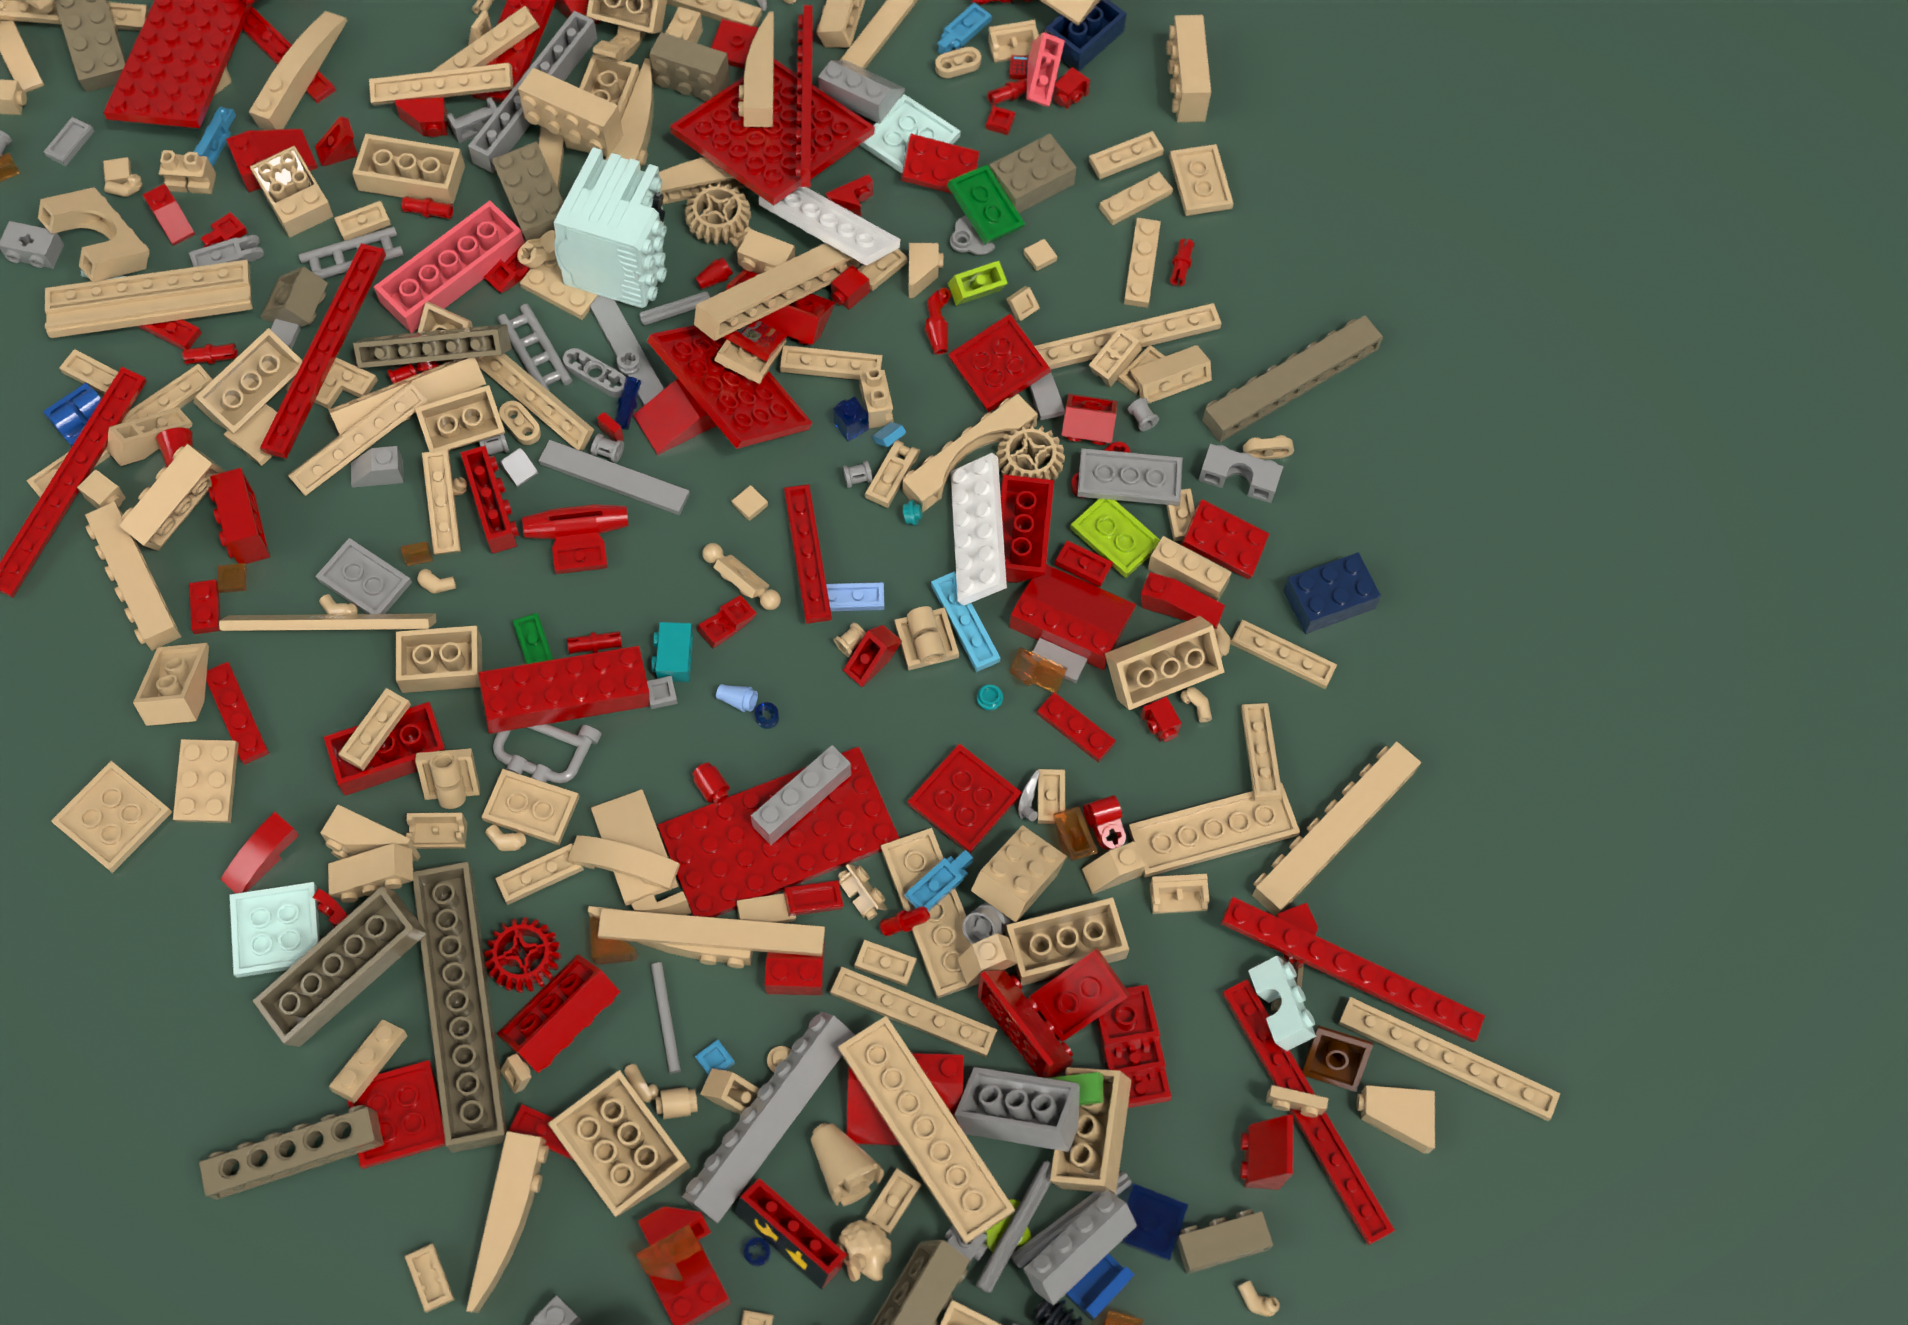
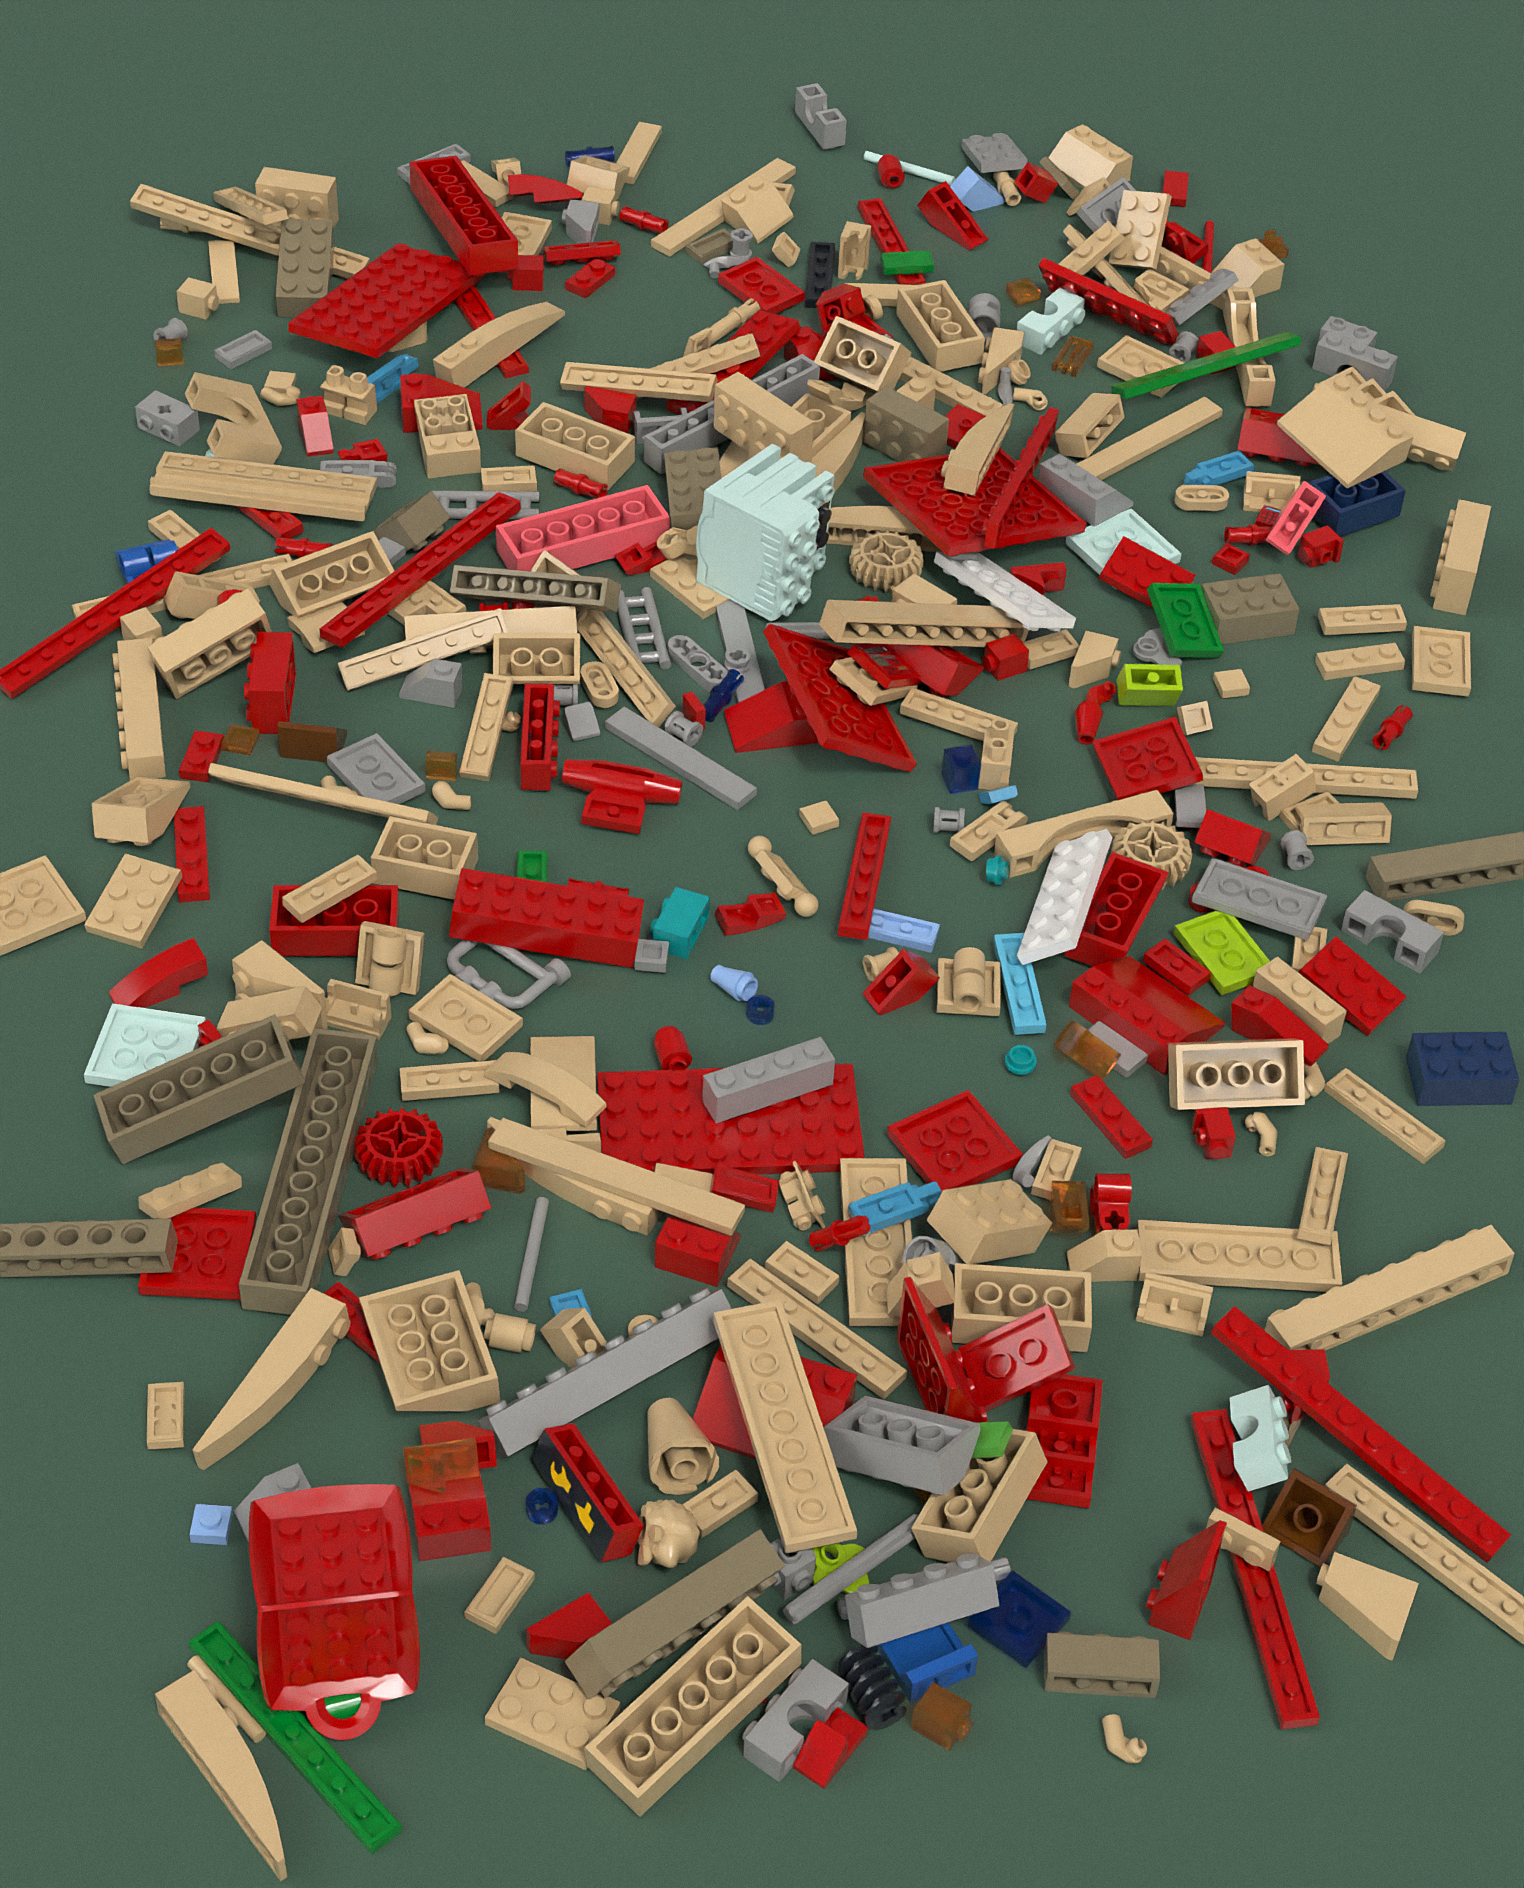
camera: 20 degrees right, 20 degrees down
(294, 560) = (309, 741): none -> reddish brown slope

